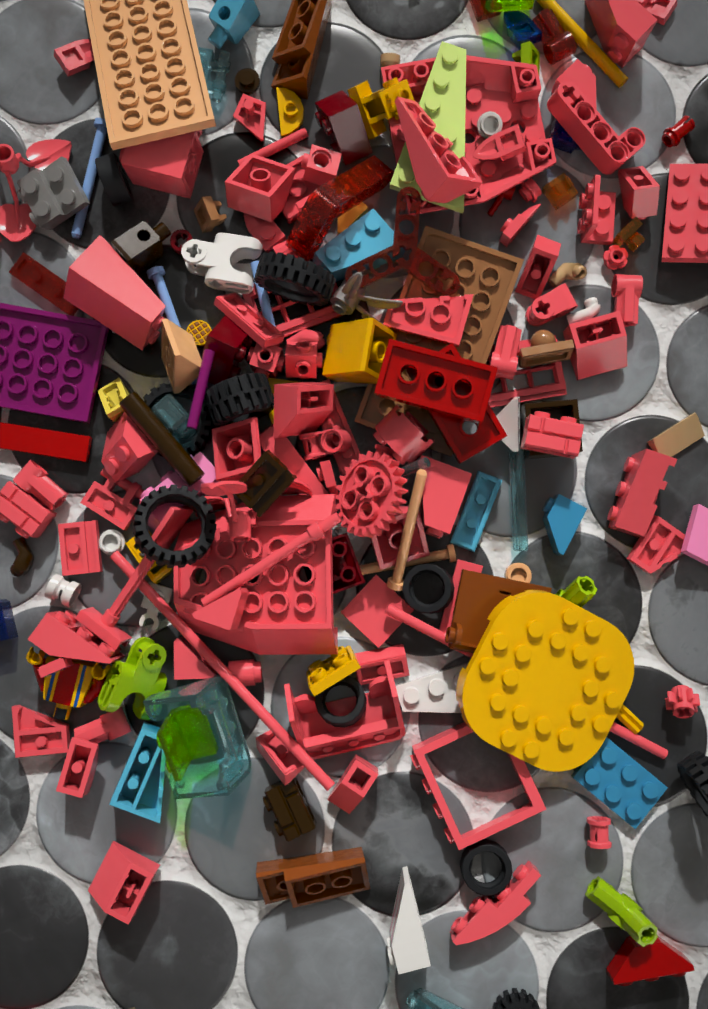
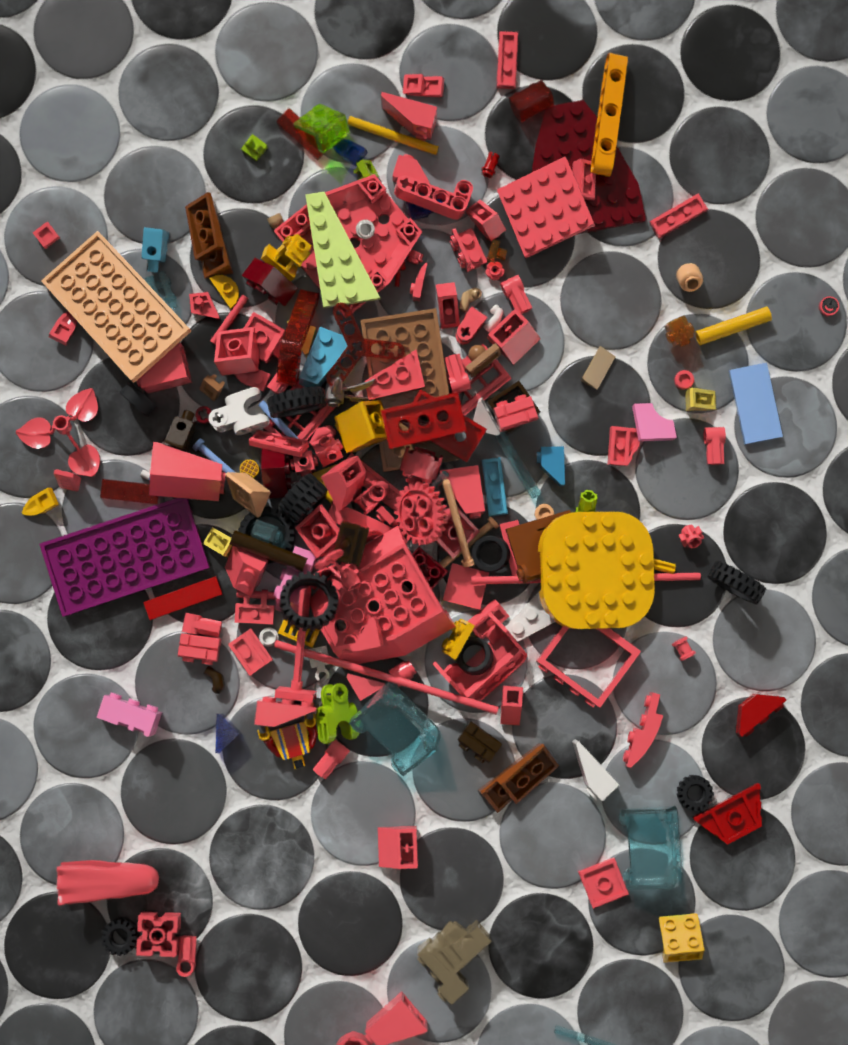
camera: 35 degrees left, 0 degrees up
(38, 733) = (291, 785): coral wing -> none
(52, 194) = (101, 430): light grey plate -> none
(55, 666) = (280, 733): coral tile -> none
(63, 590) = (255, 685): white wheel -> none
(78, 768) = (330, 789): coral slope -> none
(90, 175) = (107, 366): light blue bar -> none
(143, 777) = (373, 771): medium azure wedge -> none
(185, 737) = (389, 731): clear neon green bracket -> none
(200, 389) = (275, 505): magenta bar -> none
(247, 81) = (187, 283): dark brown plate -> none
(278, 757) = (454, 712): coral slope -> none
(315, 532) = (399, 555): coral bar -> none
(326, 158) = (272, 309): coral brick -> none
(434, 164) = (347, 280): coral wedge -> none
(488, 888) = (638, 713): black tyre -> none
(501, 145) = (380, 239): coral plate -> none
(556, 42) = (378, 148): clear red piece -> none
(560, 191) = (434, 246): clear orange tile -> none
(620, 783) = (680, 609): dark azure plate -> none
(622, 911) = (722, 688): lime piece -> none
(639, 492) = (591, 418): coral wedge -> none

